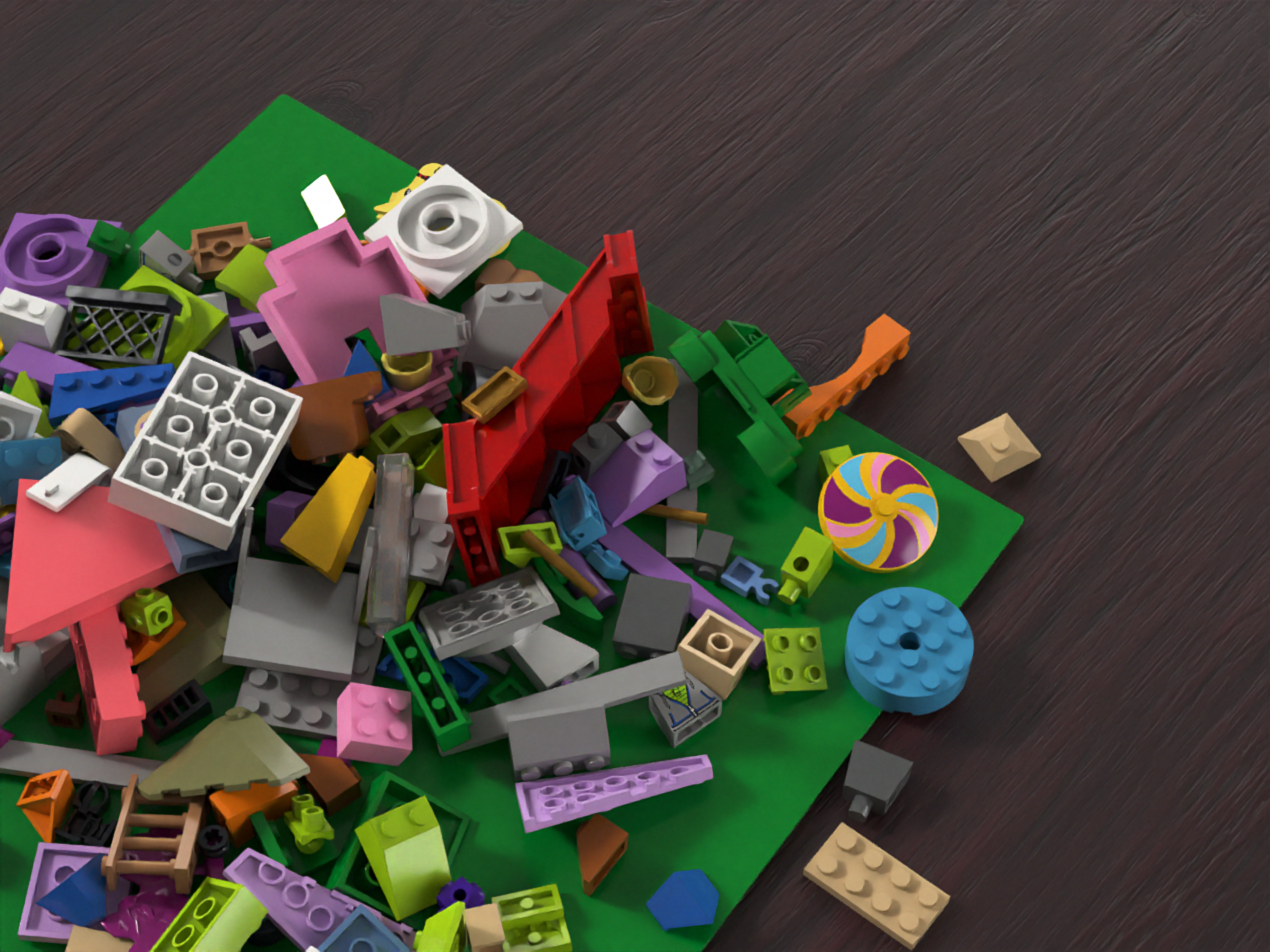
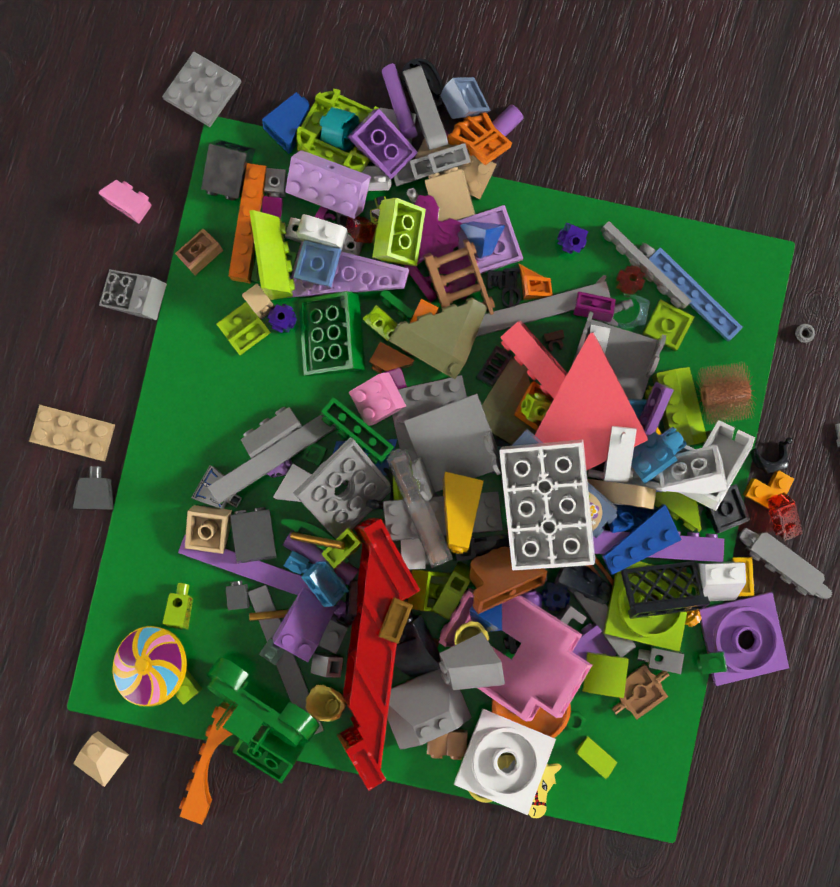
camera: 150 degrees right, 30 degrees up
(210, 833) = (430, 286): black bush -> none
(281, 514) = (492, 508): medium lavender slope -> none
(407, 856) = (321, 328): lime slope -> none
(578, 795) = (244, 407): lavender wing -> none
(598, 850) = (224, 381): dark orange slope -> none
(684, 900) = (164, 373): blue slope -> none
(747, 578) = (213, 590): medium blue plate -> none
(794, 659) = (162, 544): lime hinge -> none
(908, 650) = (80, 585): dark azure brick -> none

